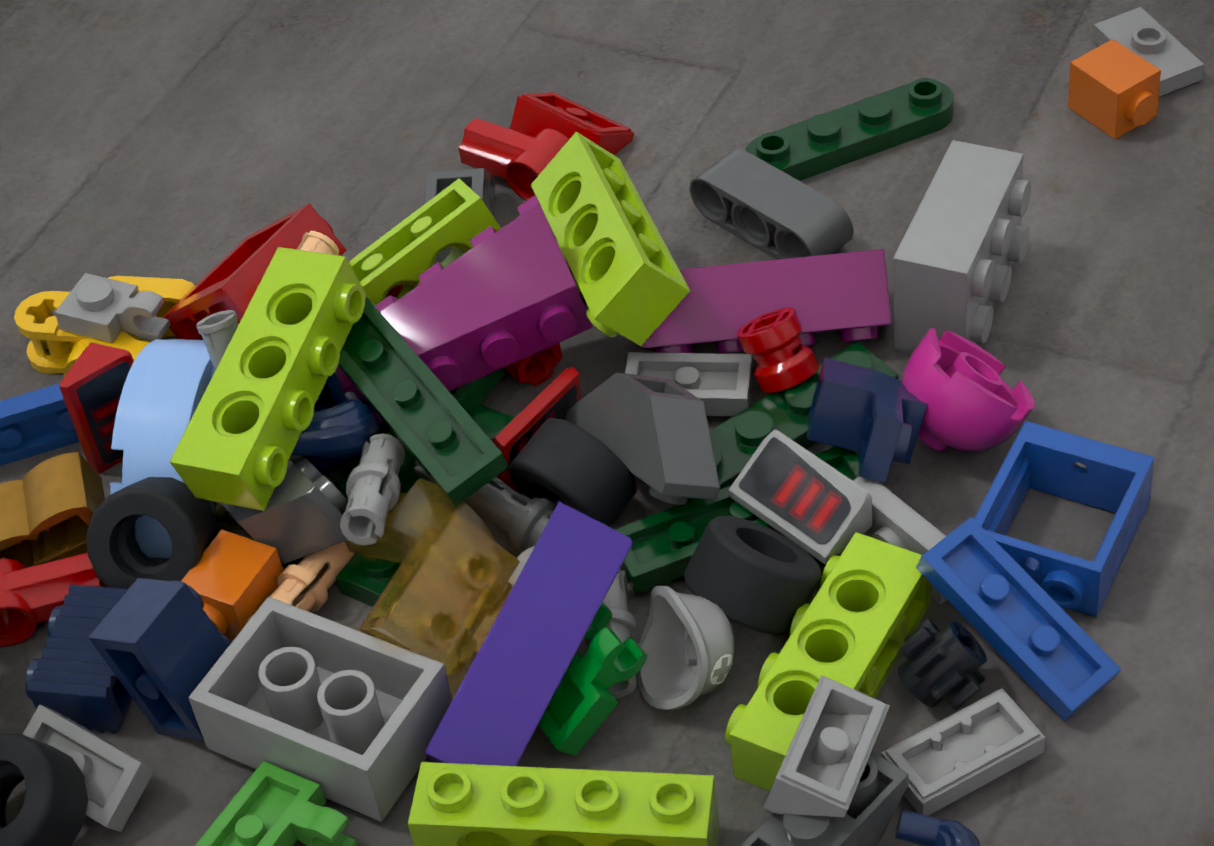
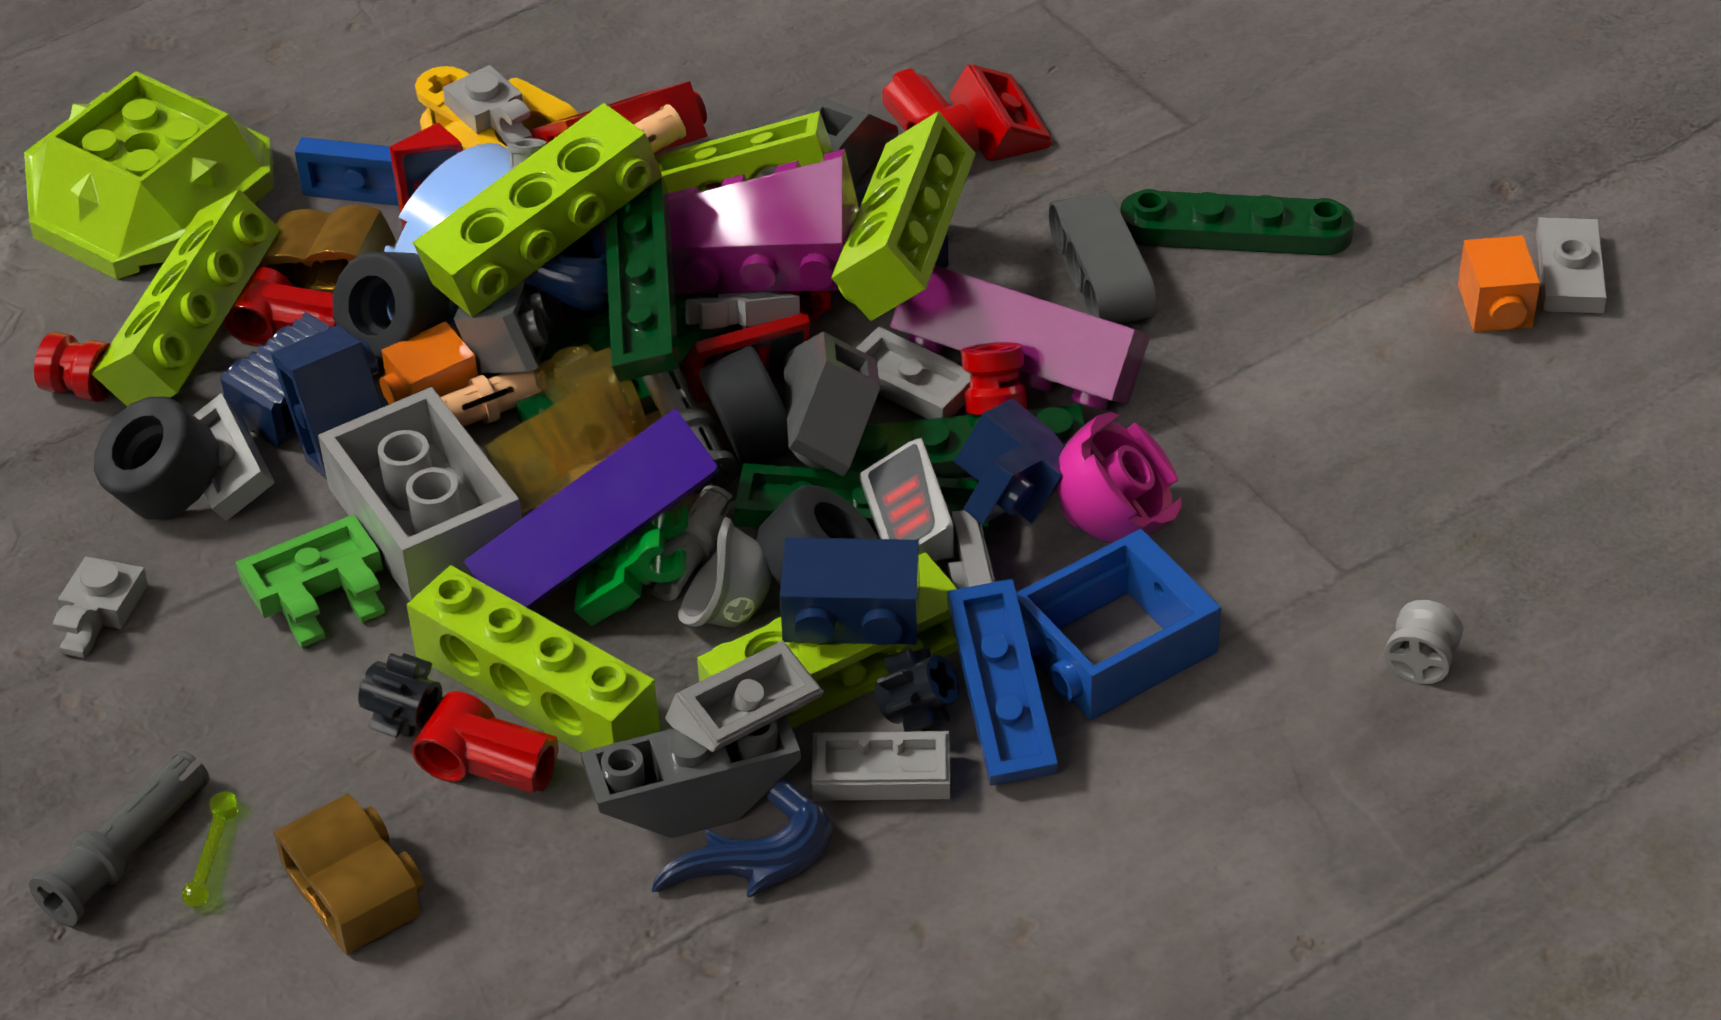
camera: 25 degrees right, 0 degrees up
(372, 489) = (544, 351): light grey pin -> none
(506, 389) = (740, 308): none -> light grey plate
(837, 598) = (850, 591): none -> dark blue brick
(961, 246) = (1215, 360): light grey brick -> none

